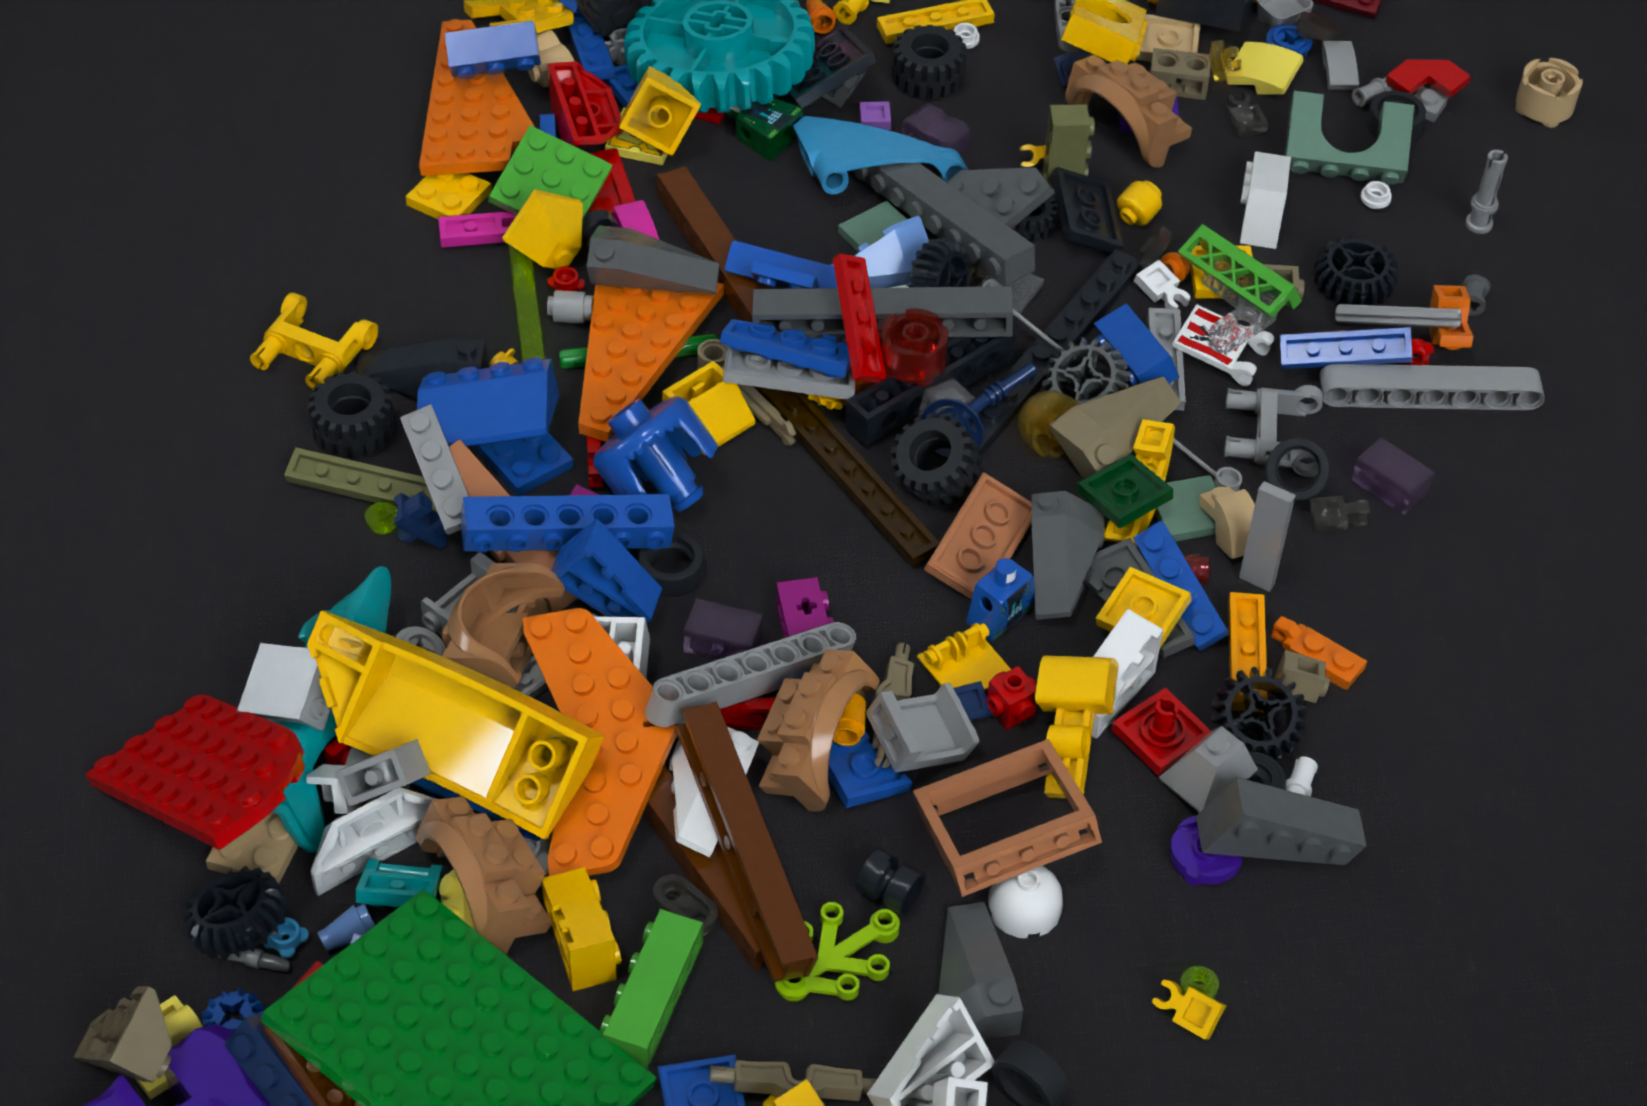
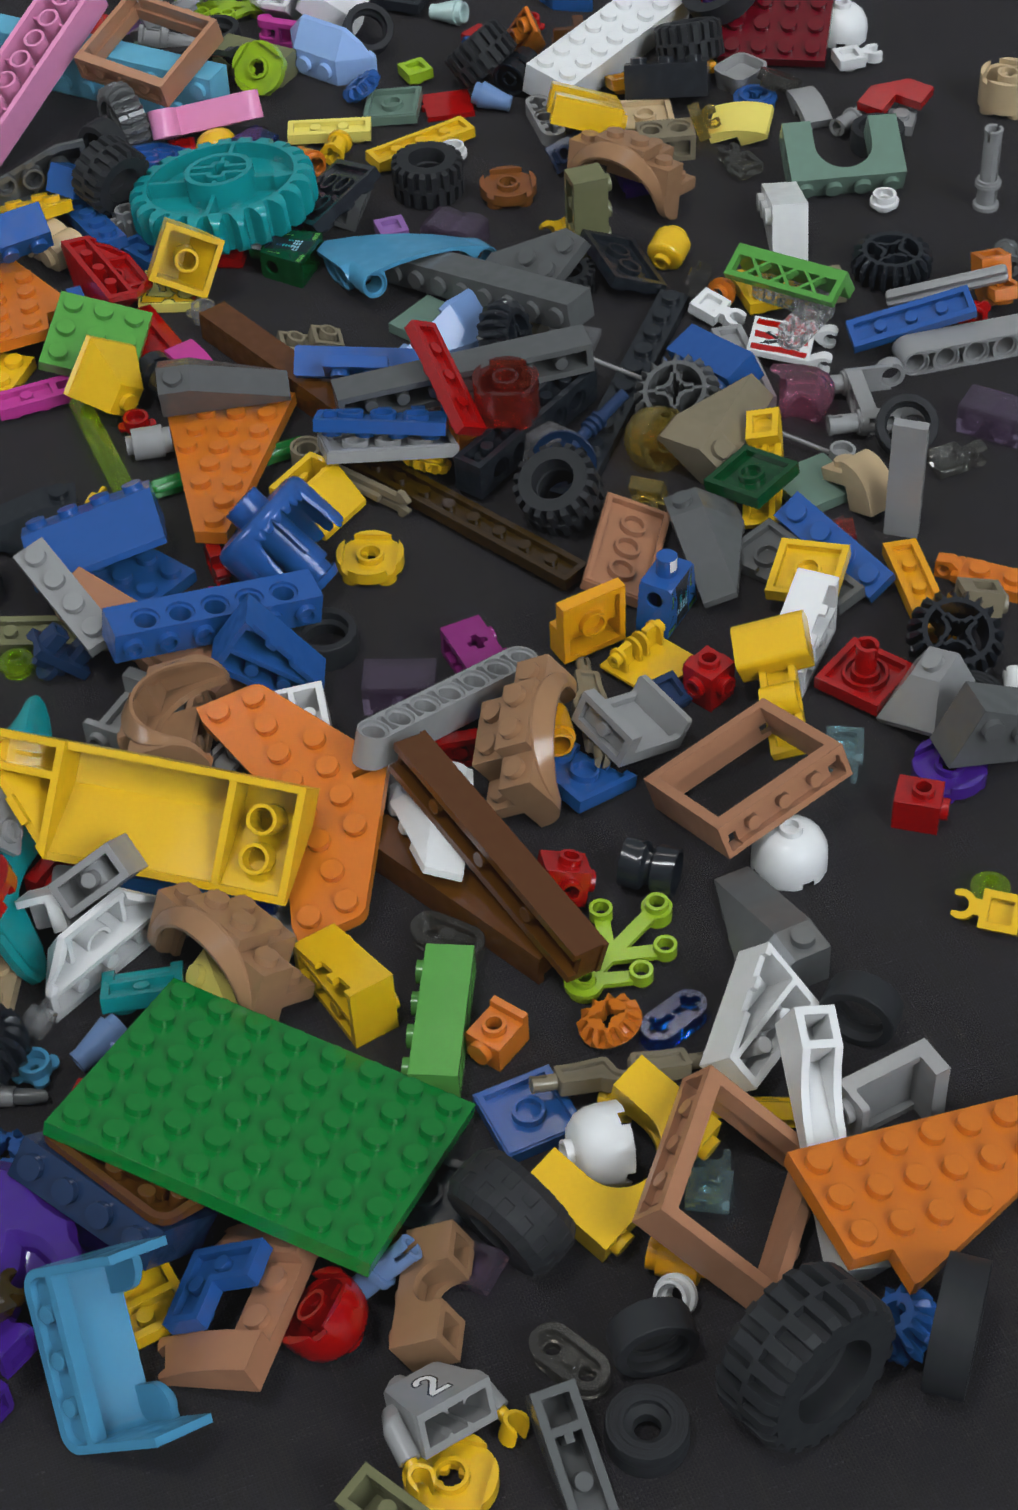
camera: 10 degrees left, 5 degrees down
(300, 891) = (39, 1019): none -> clear plate
(663, 164) = (198, 306): none -> clear plate
(698, 1014) = (497, 1034): none -> orange brick
(739, 501) = (358, 569): none -> yellow plate
(765, 230) = (317, 336): none -> dark tan slope
(809, 872) = (570, 872): none -> red brick
(811, 1036) = (620, 1029): none -> orange gear
(863, 1042) = (669, 1017): none -> clear blue beam
(917, 612) = (589, 621): none -> light orange plate
(994, 100) = (508, 187): none -> dark orange plate
(1025, 478) = (647, 490): none -> clear yellow tile
(1115, 805) = (853, 743): none -> clear light blue plate
(1163, 881) = (919, 804): none -> red brick
(1213, 403) = (804, 391): none -> clear pink piece
(1408, 15) = (852, 57): none -> white plate

